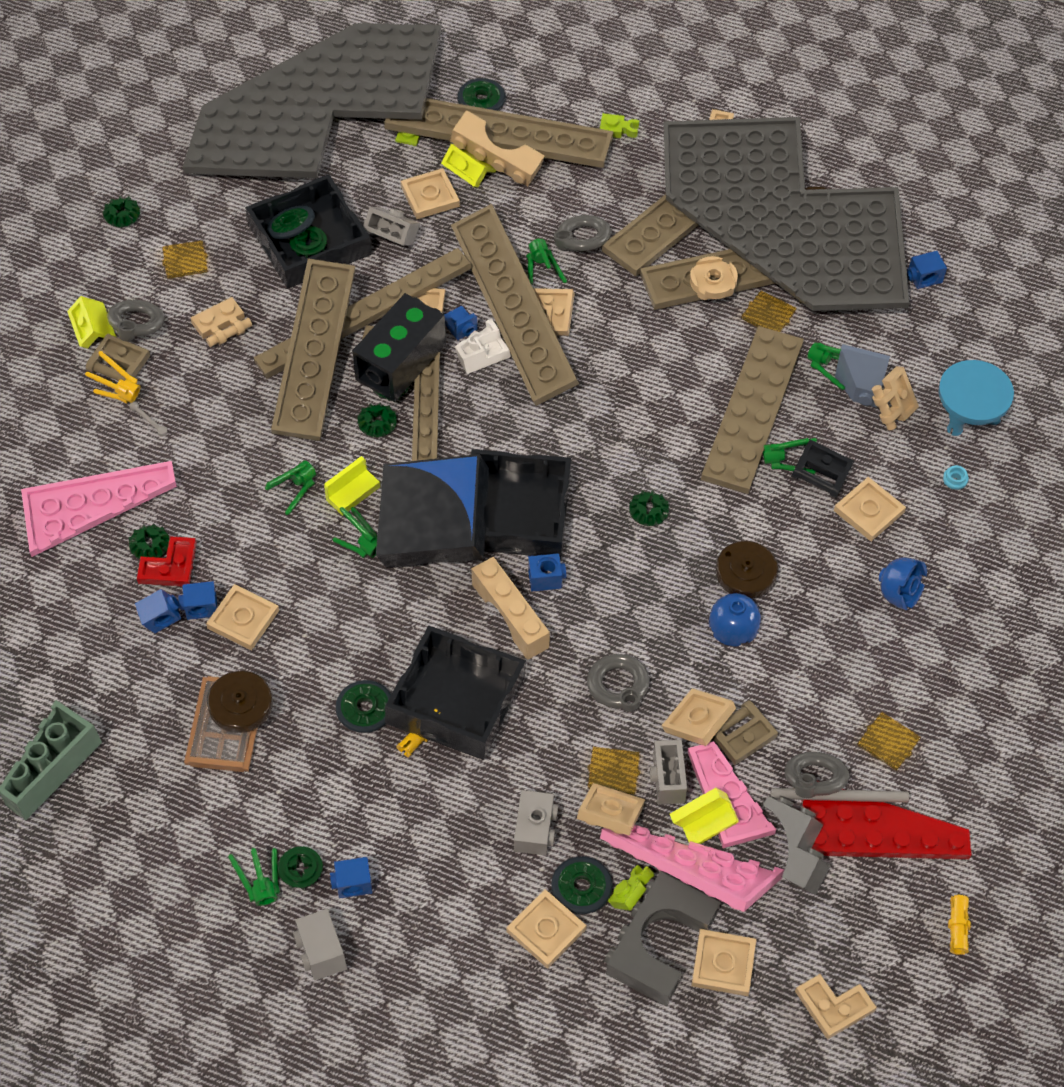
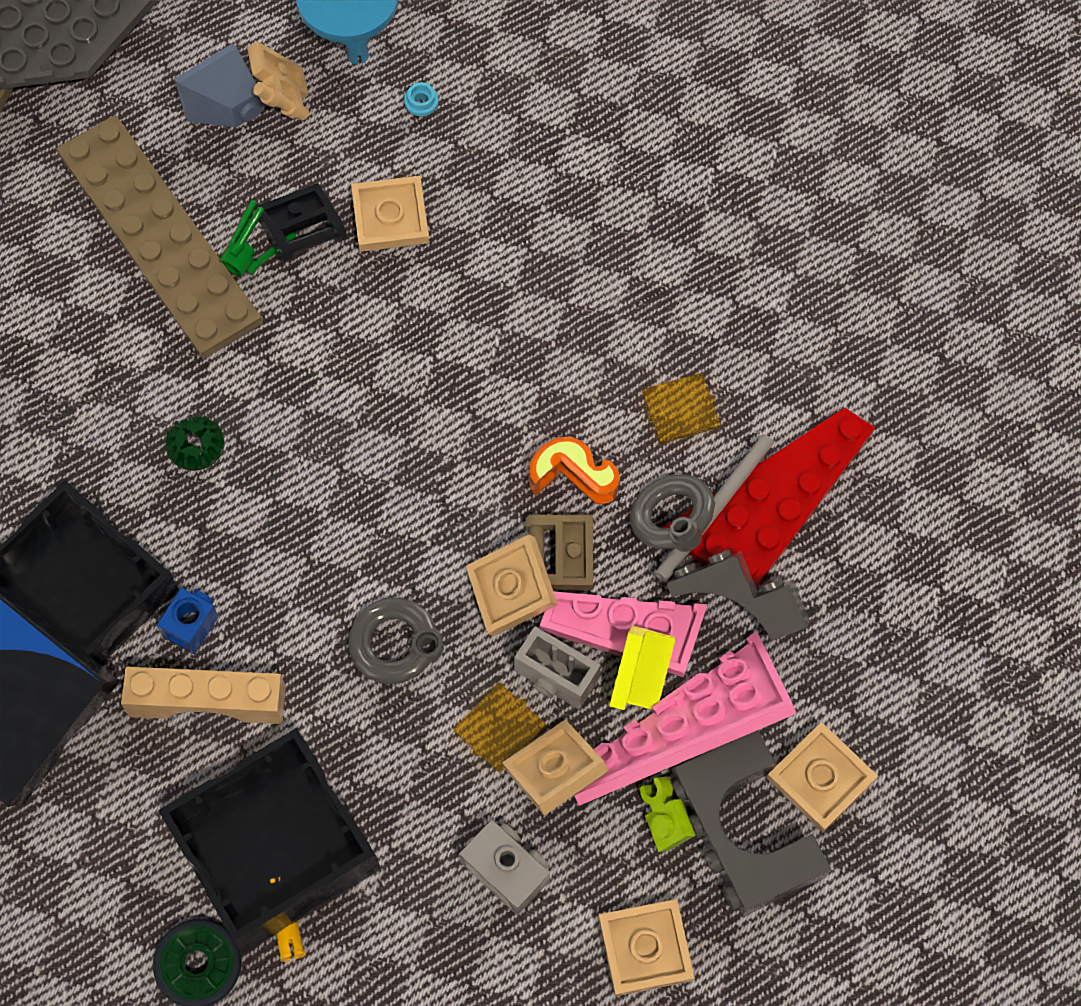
camera: 55 degrees left, 10 degrees up
(582, 868) = (611, 891): wheel -> none
(735, 619) = (414, 456): blue cylinder -> none
(746, 569) = (363, 396): dark brown wheel -> none
(768, 312) = (45, 124): clear yellow piece -> none
(803, 697) = (576, 462): none -> orange animal
(822, 354) = (152, 114): green plant -> none
(834, 1013) = (957, 703): tan plate -> none
(902, 582) = (508, 249): blue cylinder -> none
(959, 924) = (943, 499): yellow pin -> none

